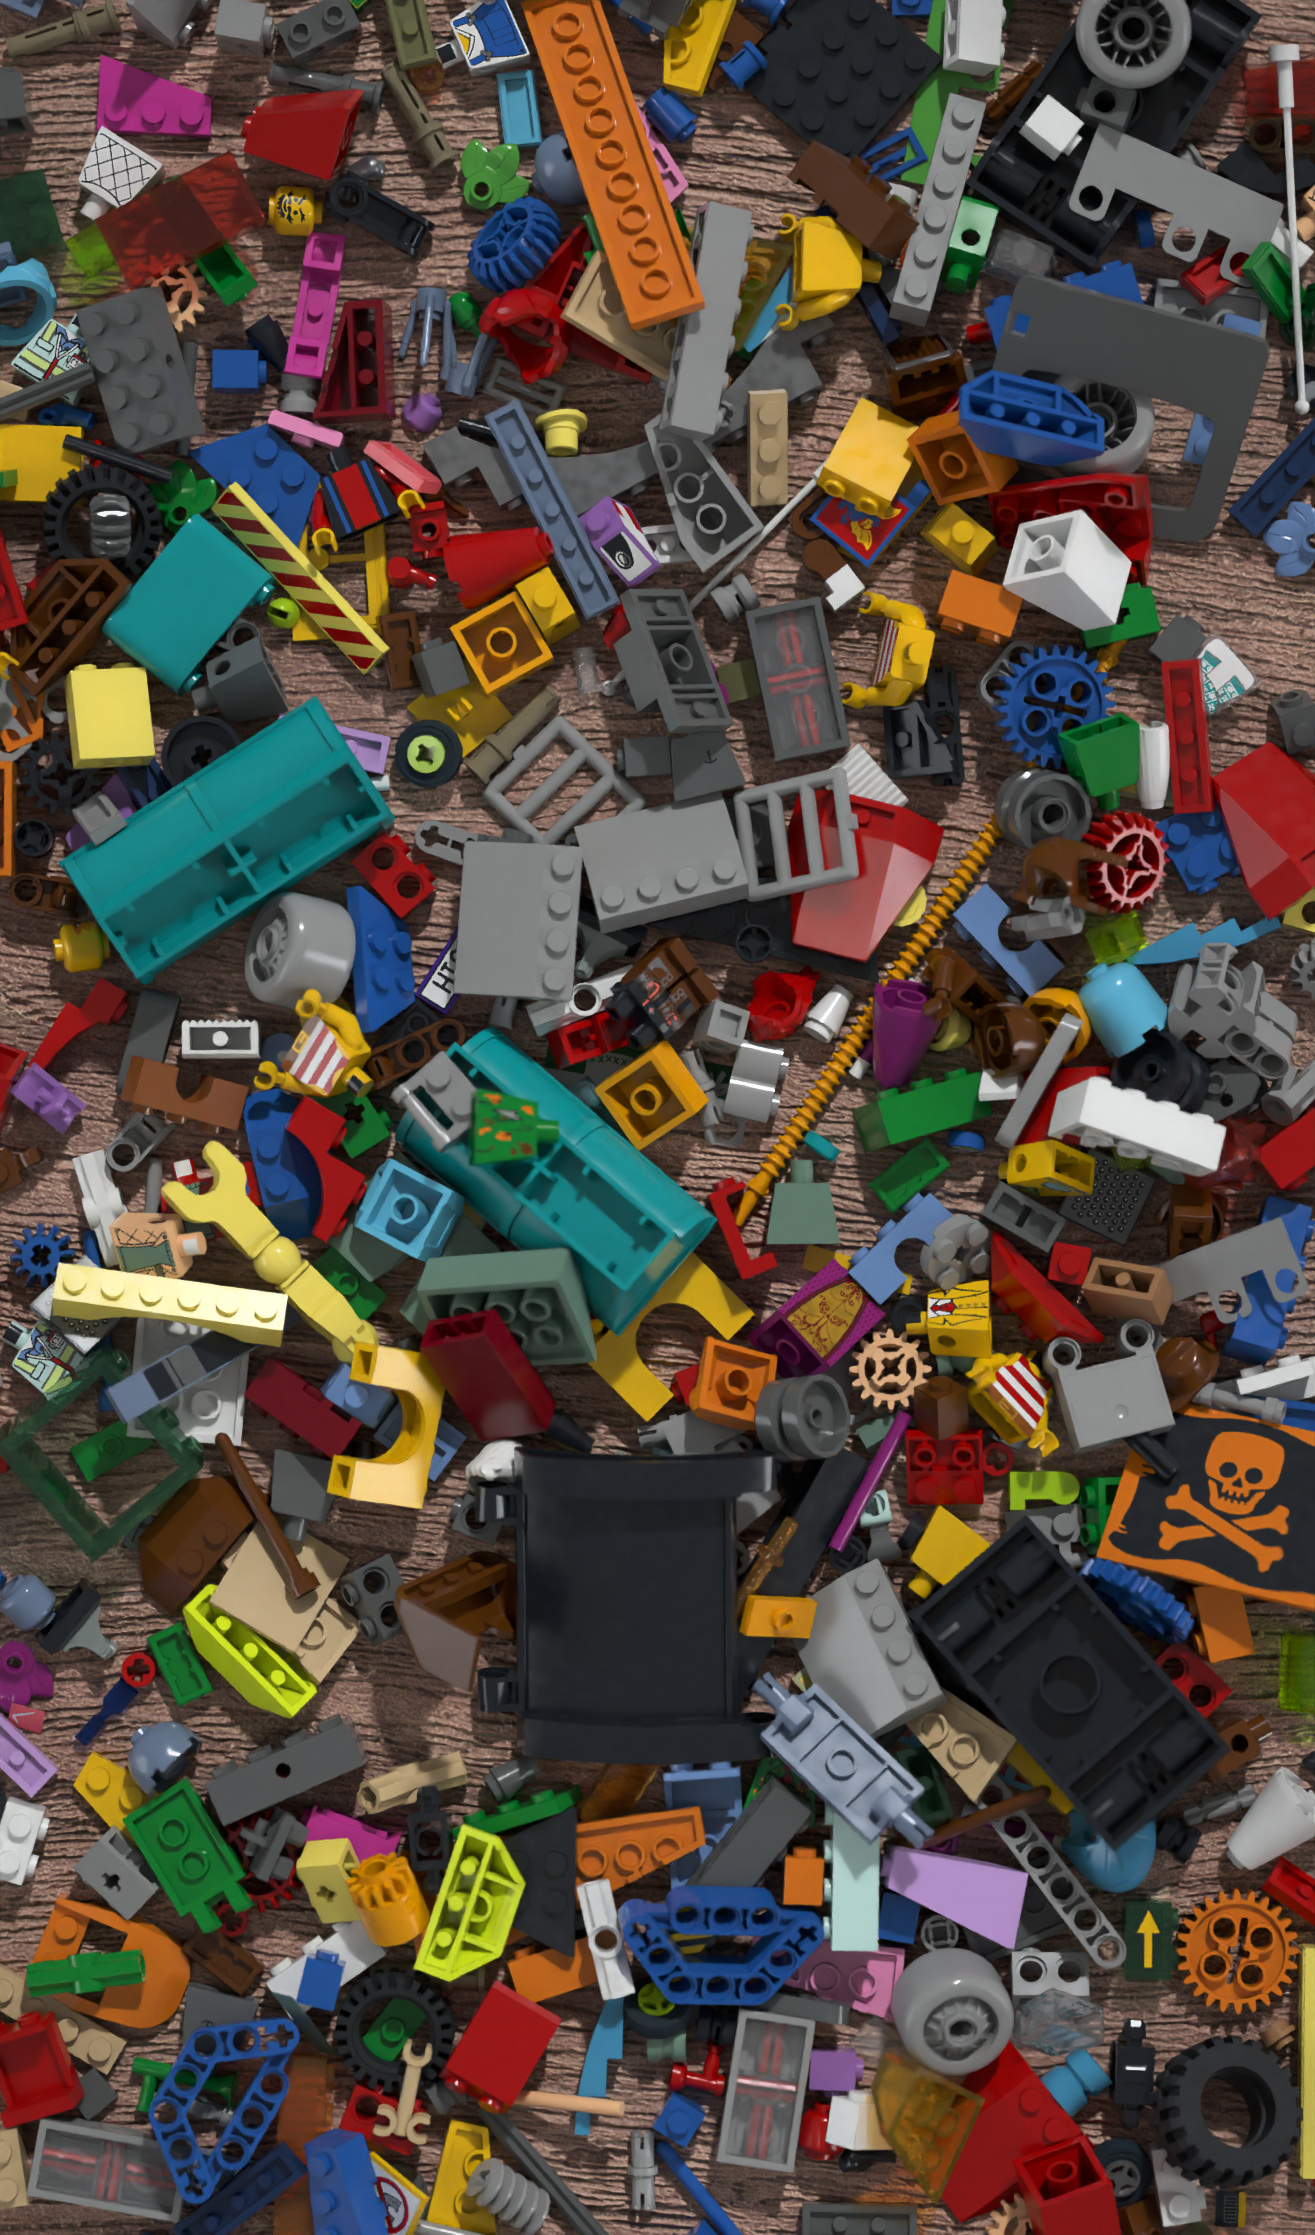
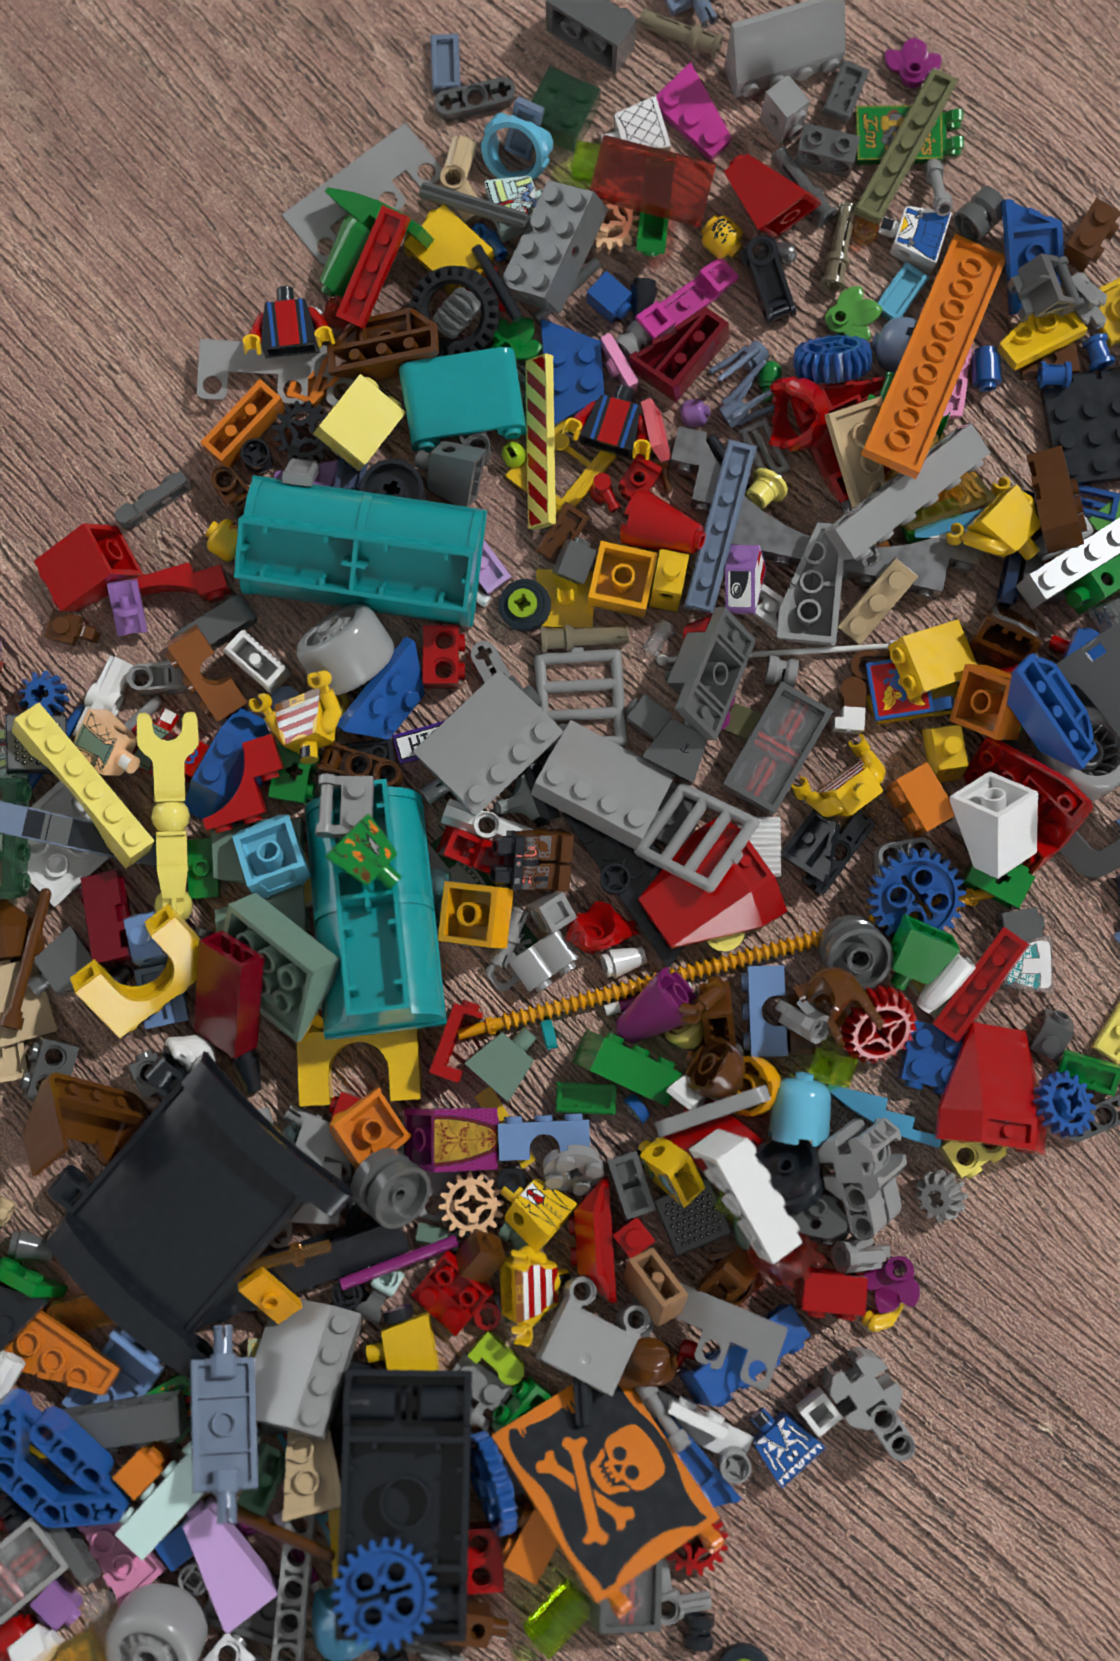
camera: 40 degrees right, 5 degrees down
(1091, 1753) = (392, 1625): none -> blue gear

